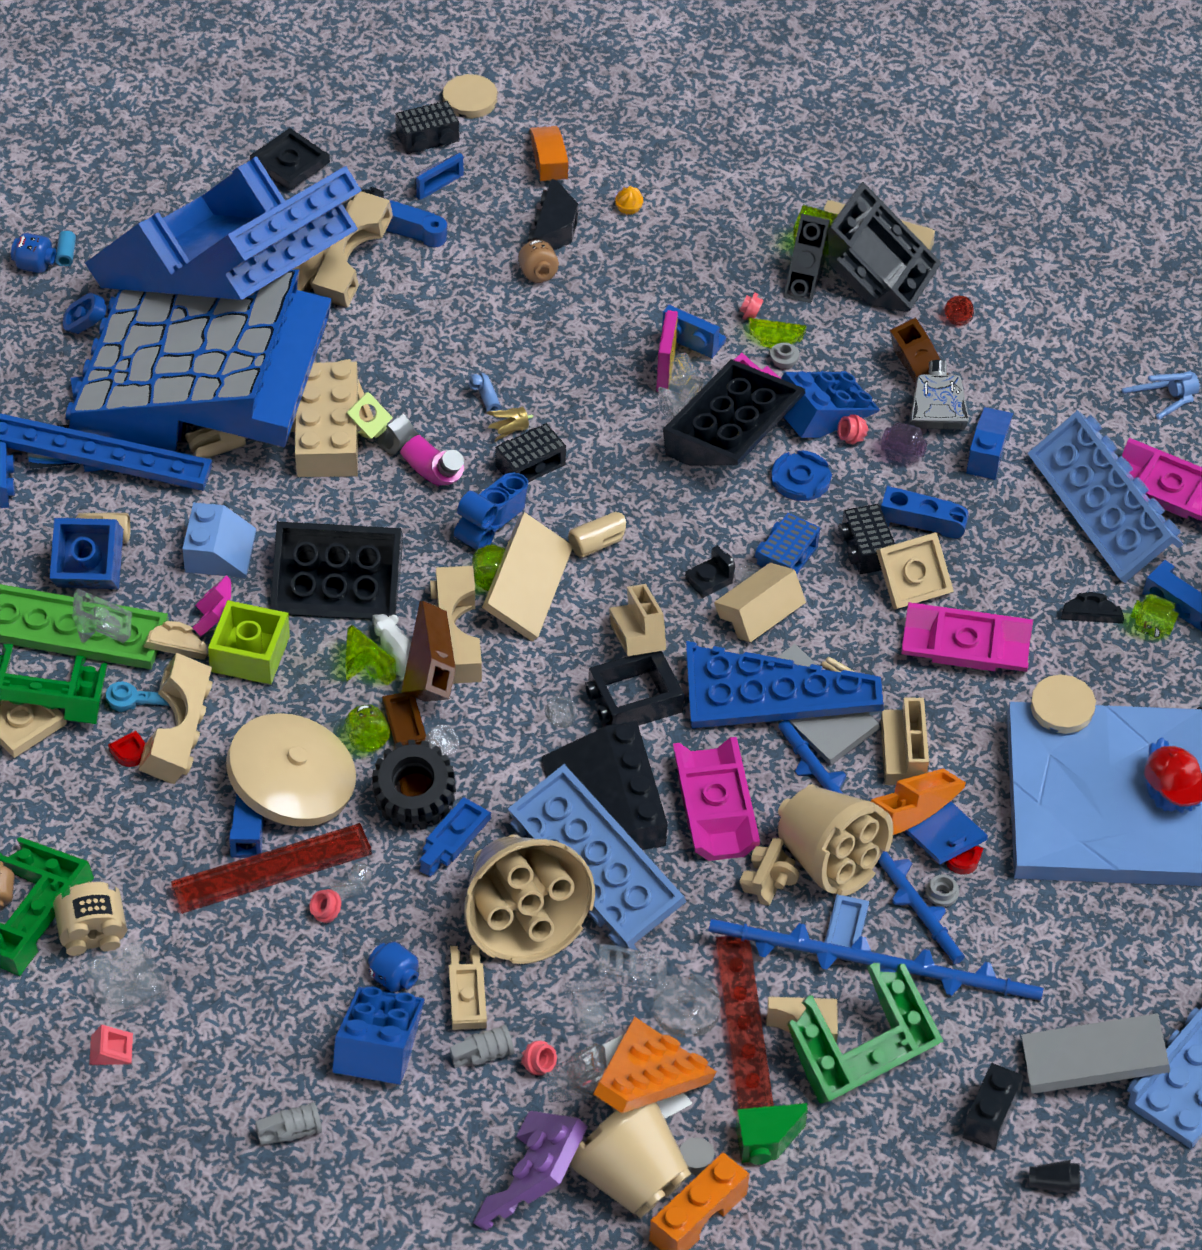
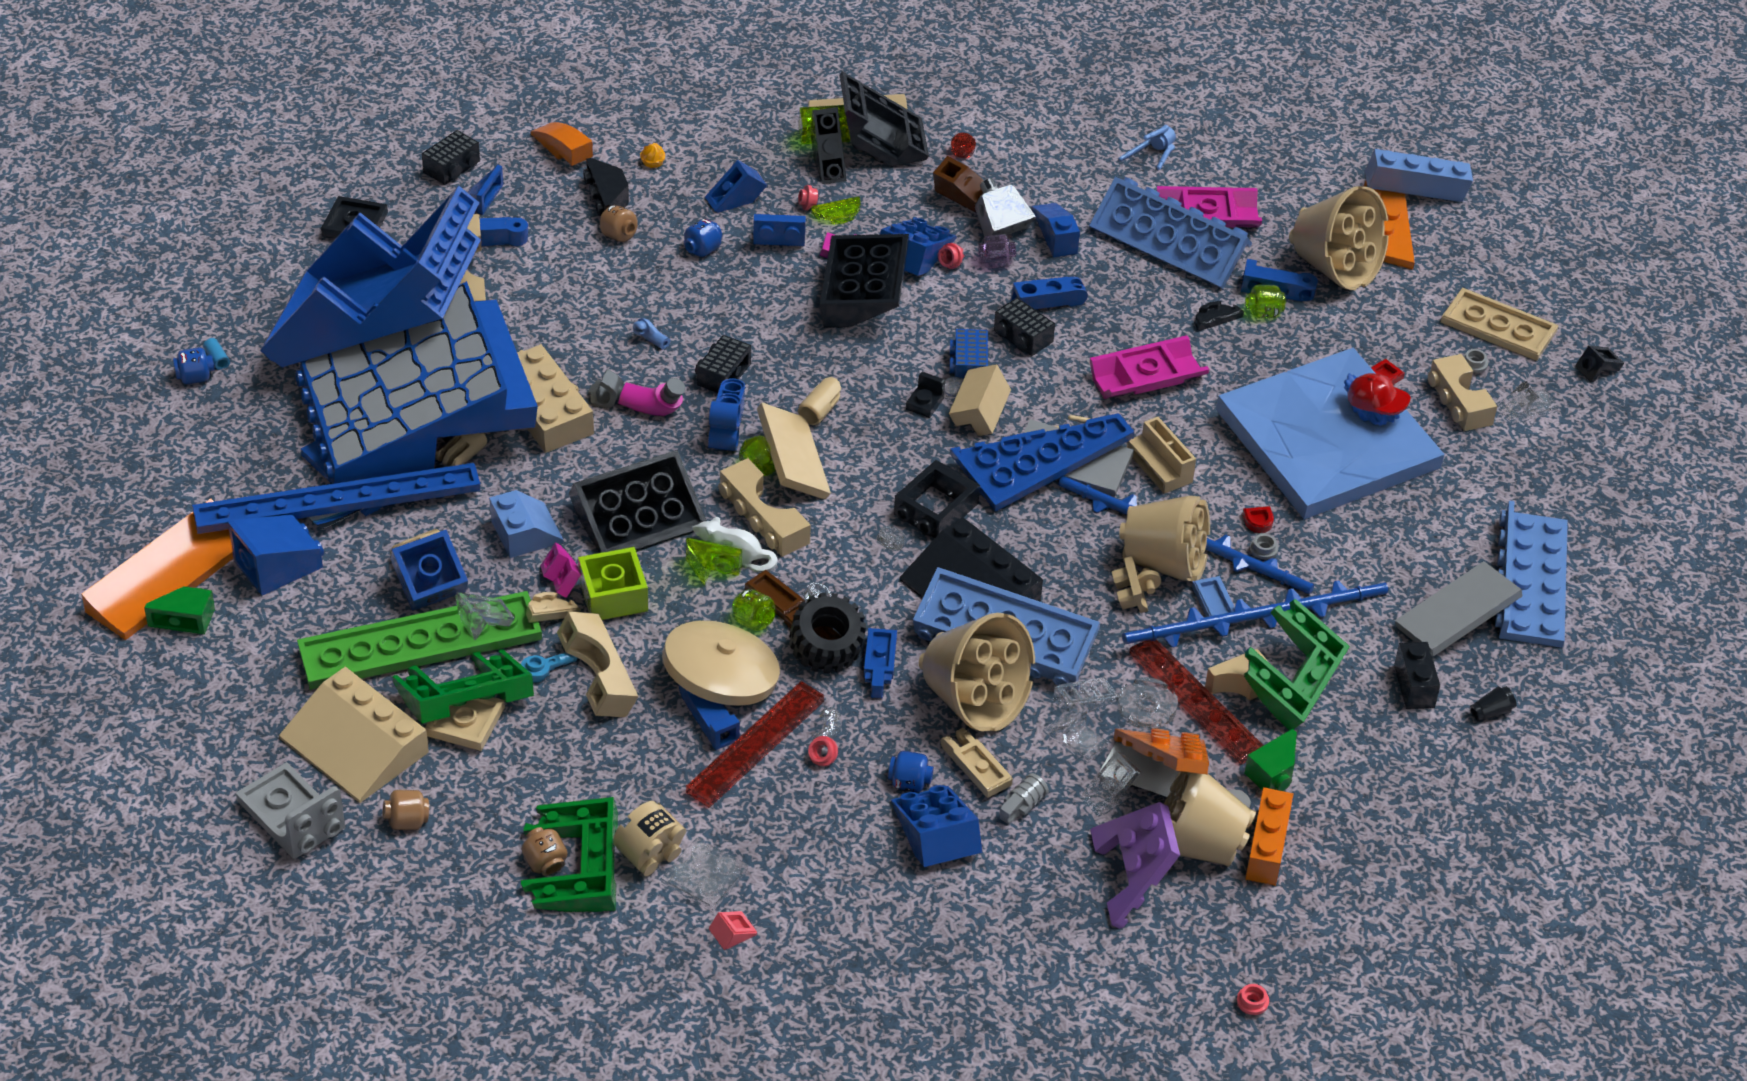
camera: 30 degrees left, 5 degrees down
(84, 313) = (278, 393): blue plate -> none
(128, 749) = (571, 705): red tile -> none
(289, 1124) = (922, 918): light grey hinge -> none
(377, 424) = (586, 385): yellowish green bracket -> none
(431, 656) = (774, 539): reddish brown slope -> none
(471, 95) = (466, 119): tan tile -> none
(516, 420) = (690, 345): pearl gold piece -> none
(539, 1058) = (1070, 787): coral plate -> none
(610, 309) = (702, 237): none -> blue head
(639, 623) = (907, 447): tan piece -> none
(667, 350) = (775, 249): dark pink tile -> none
(672, 403) = (807, 288): clear slope -> none
(685, 268) = (736, 188): none -> blue slope
(686, 370) = (794, 263): clear arm -> none
(717, 801) = (1059, 551): dark pink piece -> none
(784, 355) = (858, 223): light grey plate -> none
(801, 475) = (930, 309): blue tile -> none
(915, 570) = (1077, 334): tan plate -> none
(919, 798) = (1205, 482): orange slope -> none
(947, 833) = (1233, 504): blue container -> none
(1063, 703) = (1259, 380): tan tile -> none

